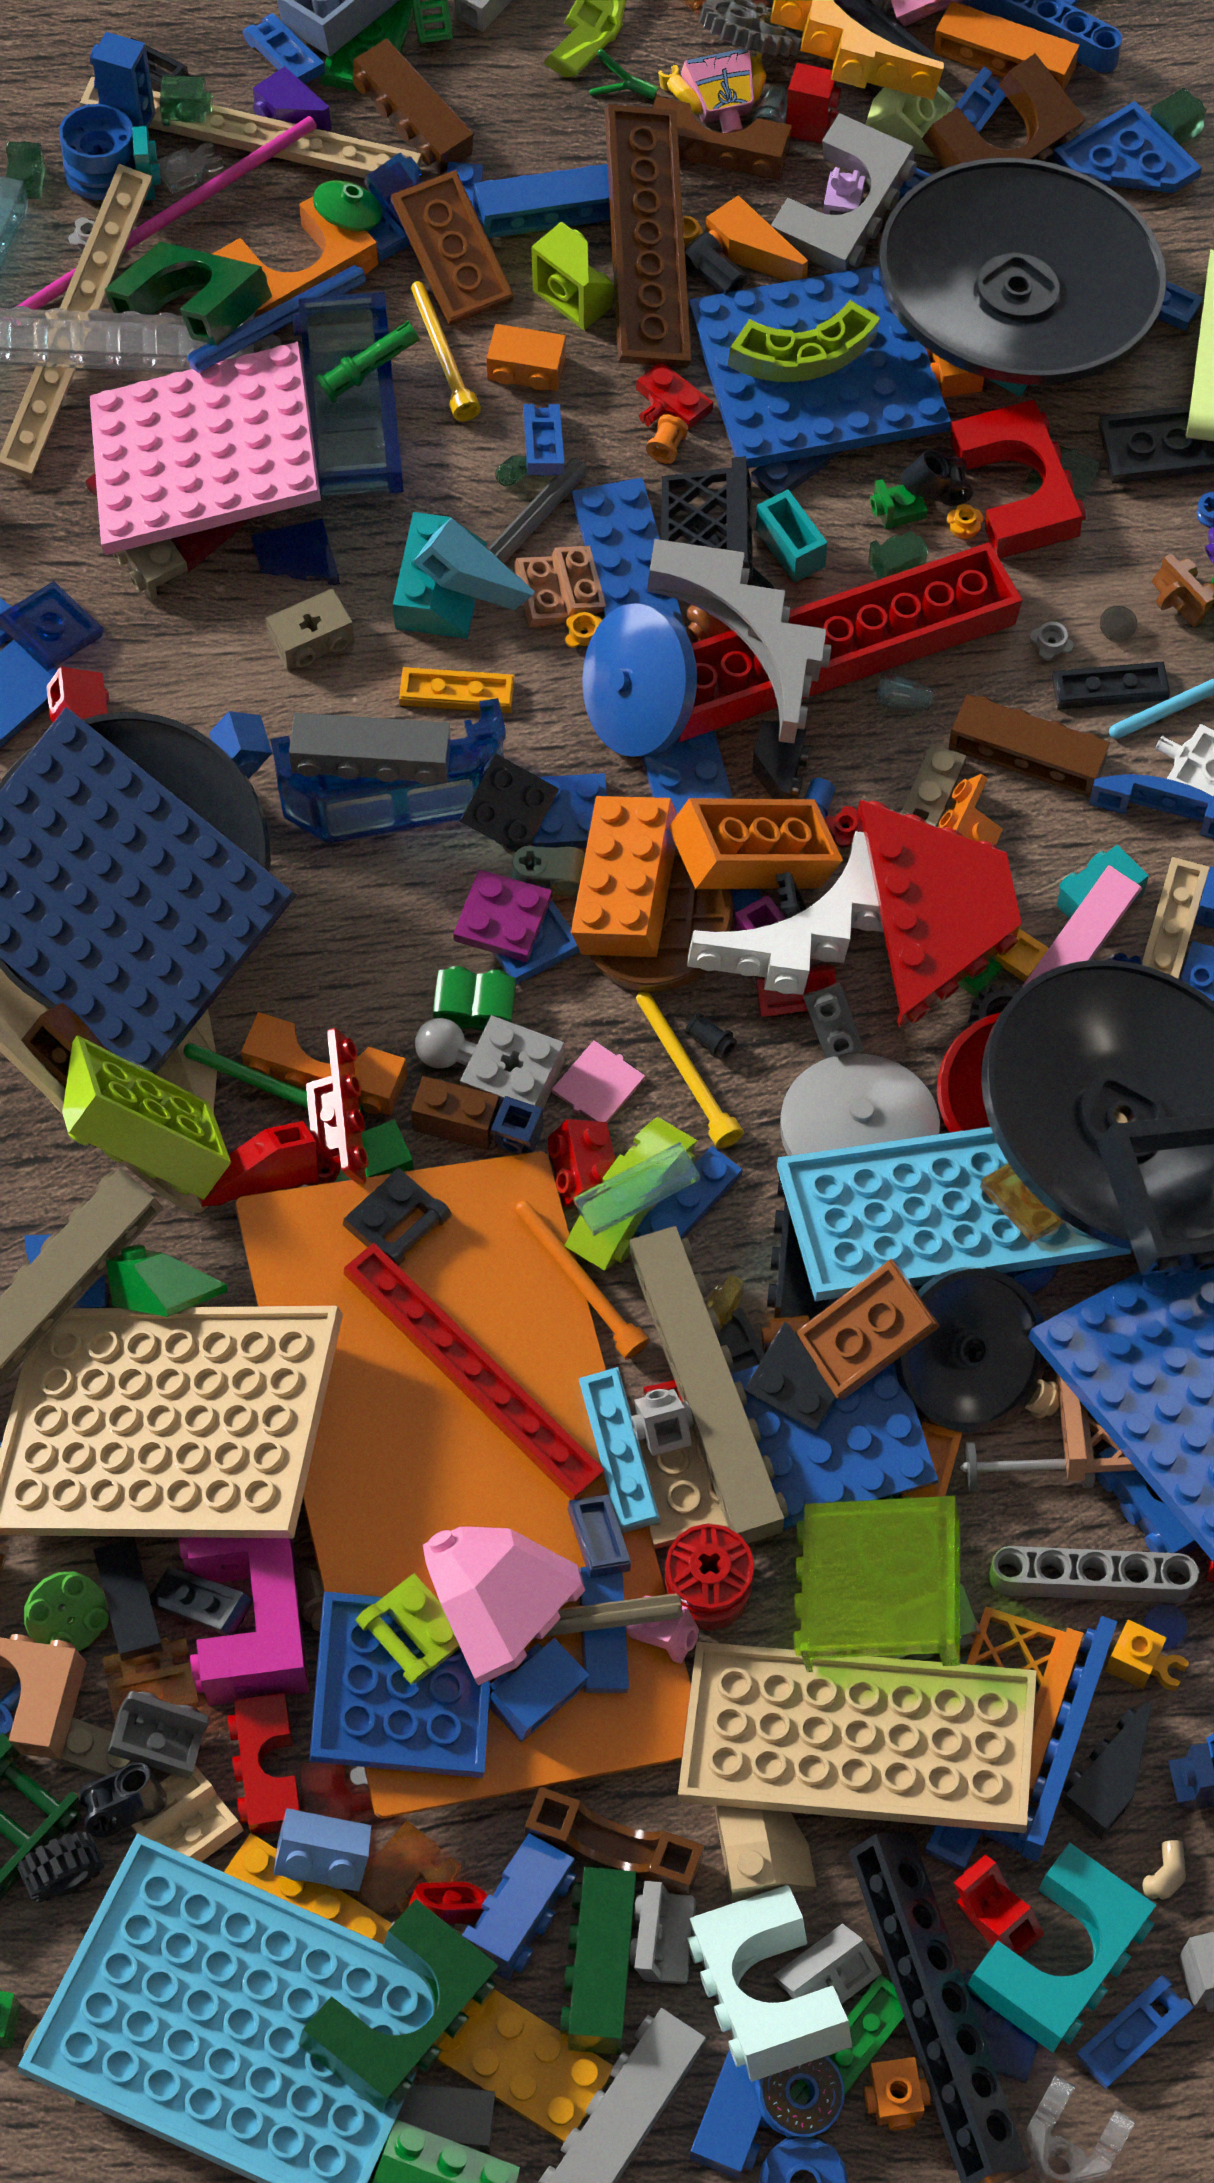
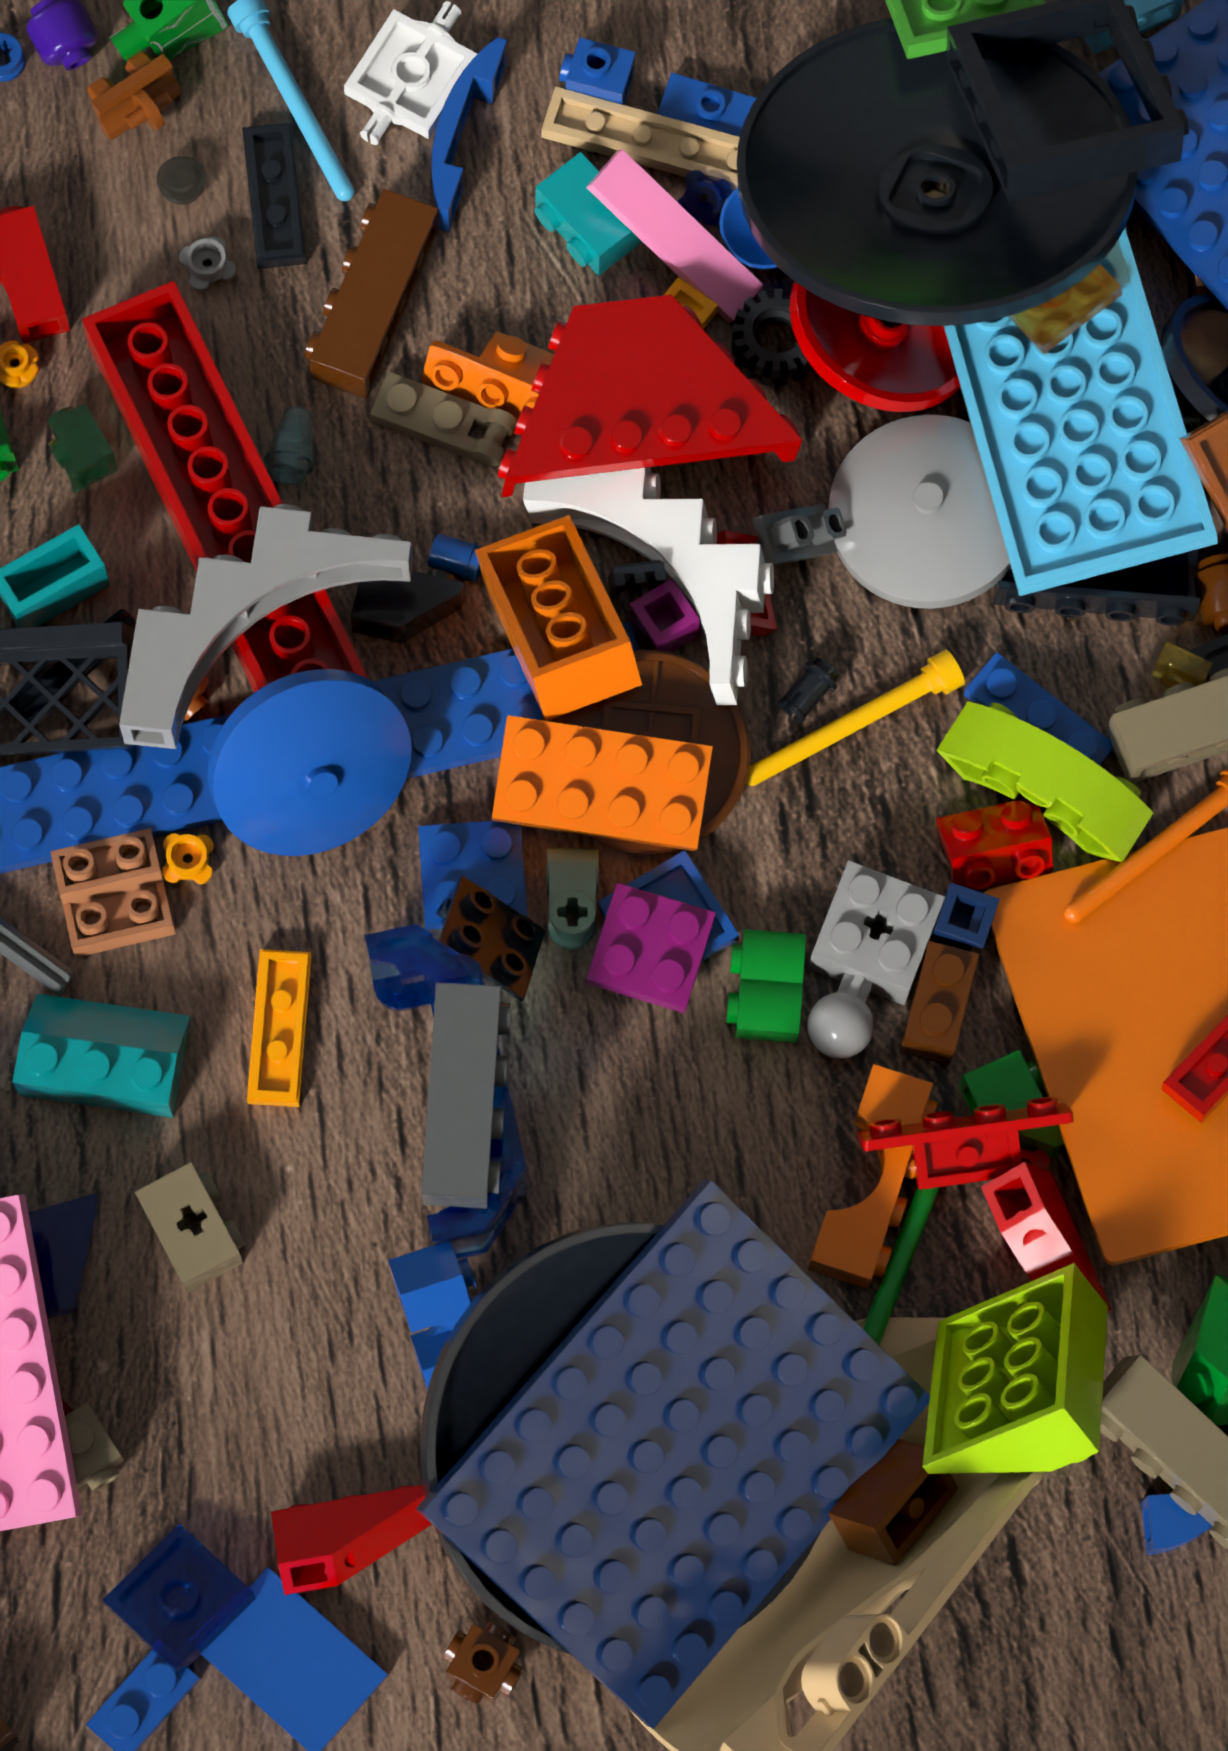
camera: 95 degrees left, 10 degrees up
(388, 1208) = (1101, 1073): black plate -> none
(466, 566) = (105, 1010): medium azure slope -> none
(598, 1083) = (875, 829): bright pink piece -> none
(636, 1188) = (1069, 759): clear light blue tile -> none
(842, 836) = (498, 509): red plate -> none

